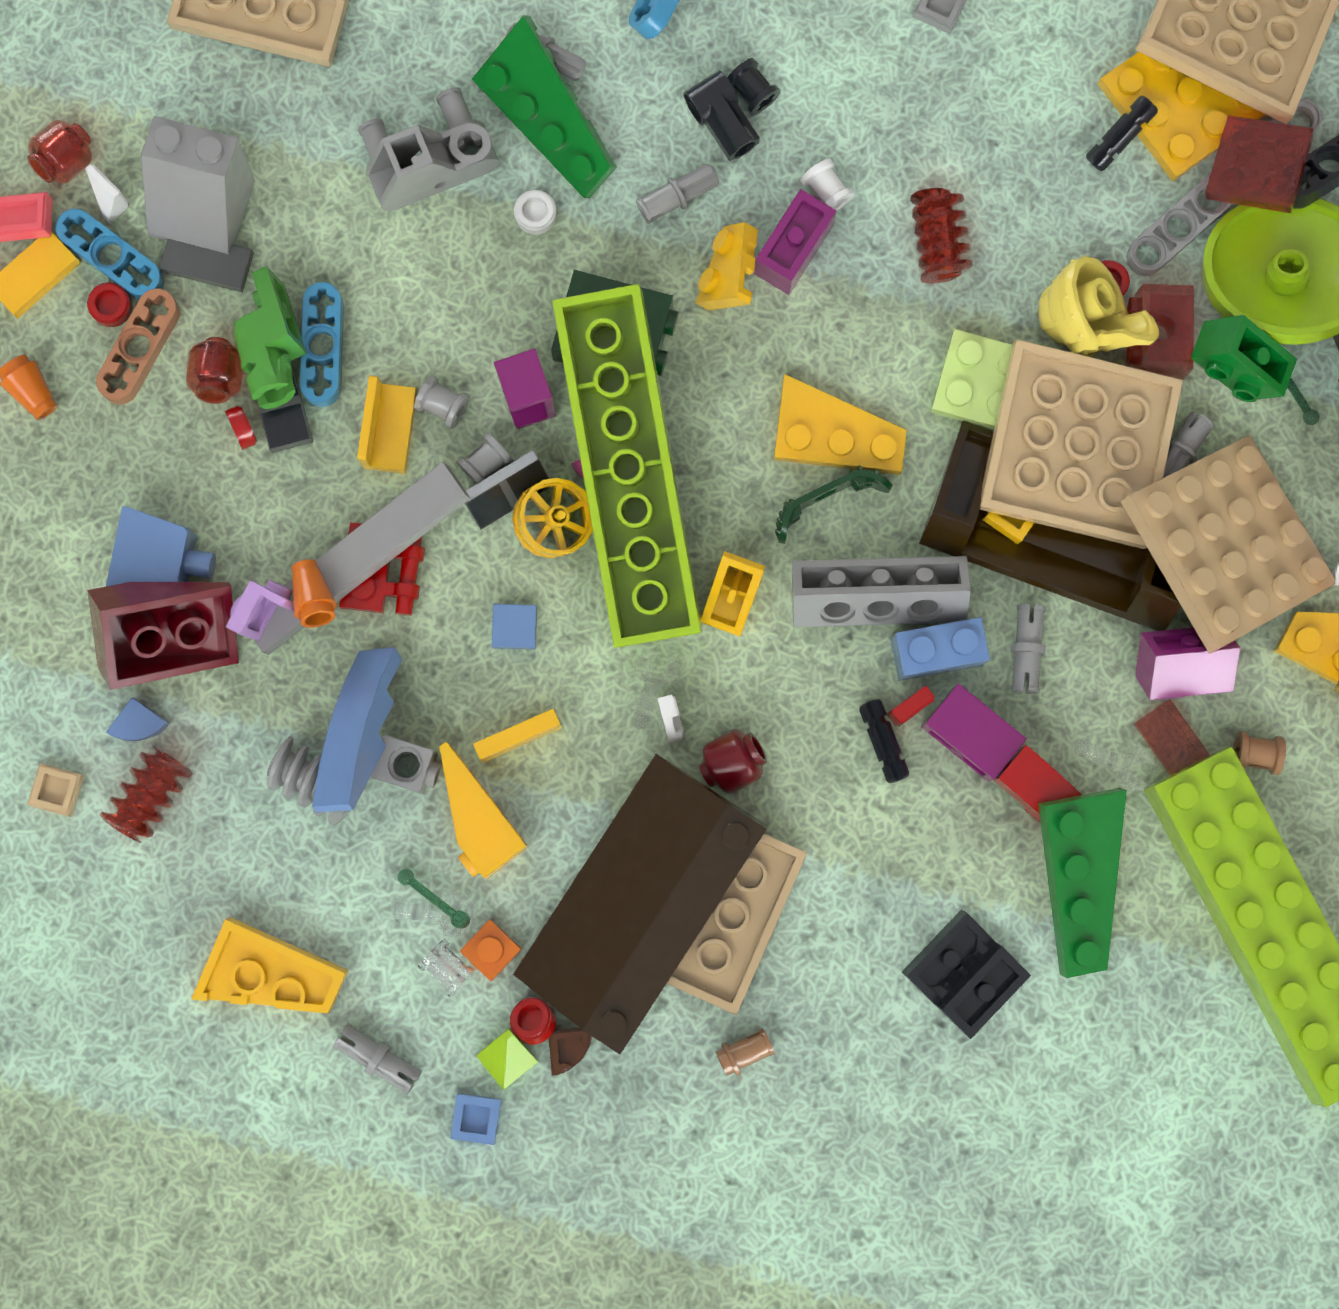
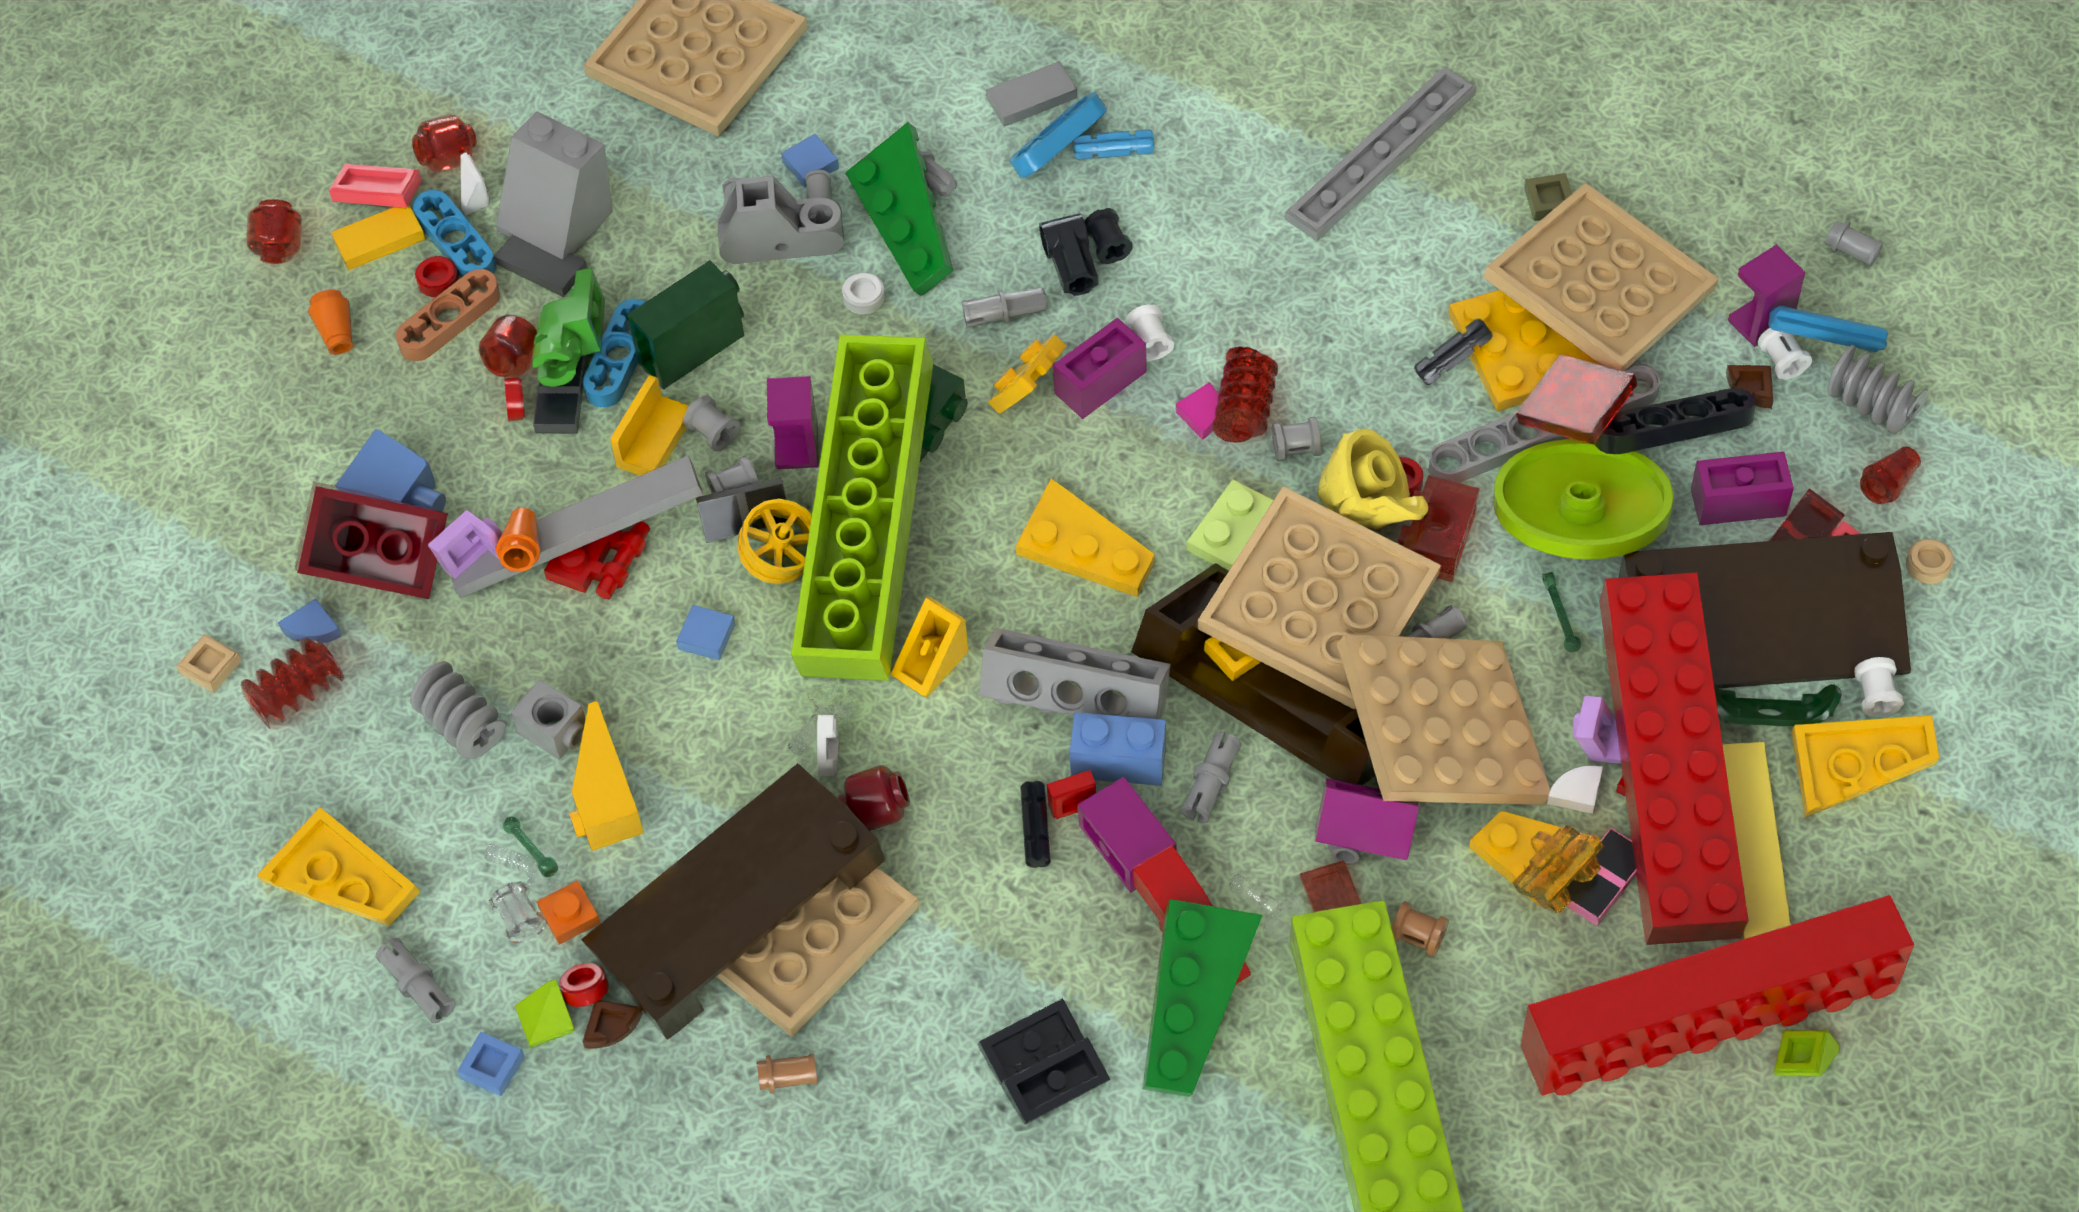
camera: 20 degrees right, 25 degrees down
(353, 732) = (511, 665): medium blue slope -> none
(384, 304) = (687, 323): none -> dark green brick
(430, 71) = (809, 156): none -> medium blue tile
(517, 735) = (670, 722): yellow tile -> none
(858, 479) = (1078, 581): dark green piece -> none
(899, 258) = (1199, 410): none -> dark pink tile
(1001, 268) = (1296, 438): none -> light grey bush
(1243, 358) = (1509, 560): green brick -> none

